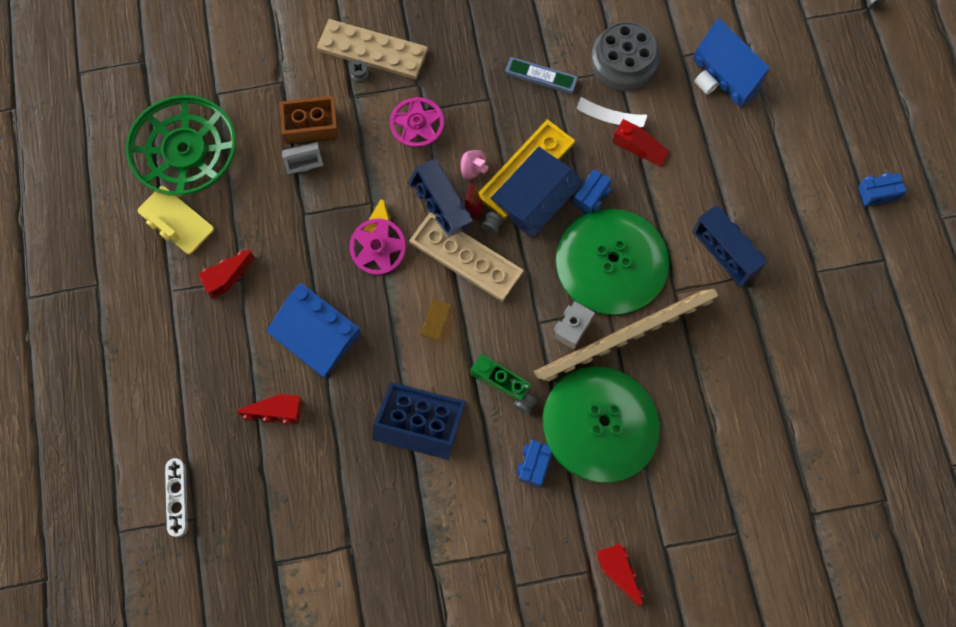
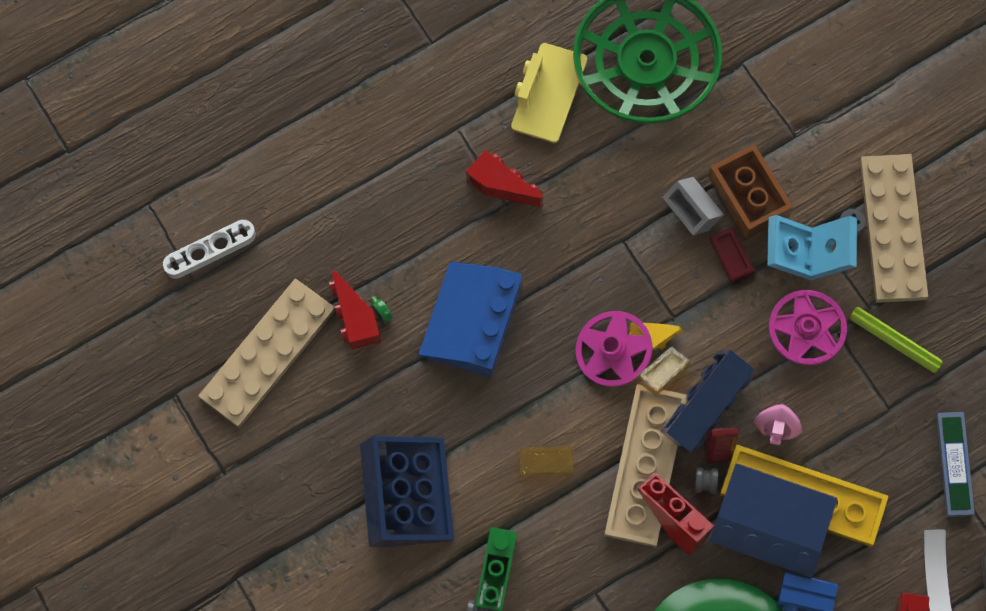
camera: 70 degrees right, 0 degrees up
(275, 483) = (267, 353): none -> tan plate
(283, 388) = (381, 309): none -> green piece
(345, 150) = (731, 254): none -> dark red tile
(365, 101) = (812, 247): none -> medium azure bracket
(407, 221) = (663, 371): none -> clear yellow tile
(446, 76) = (896, 340): none -> lime axle
(509, 248) = (676, 515): none -> red slope

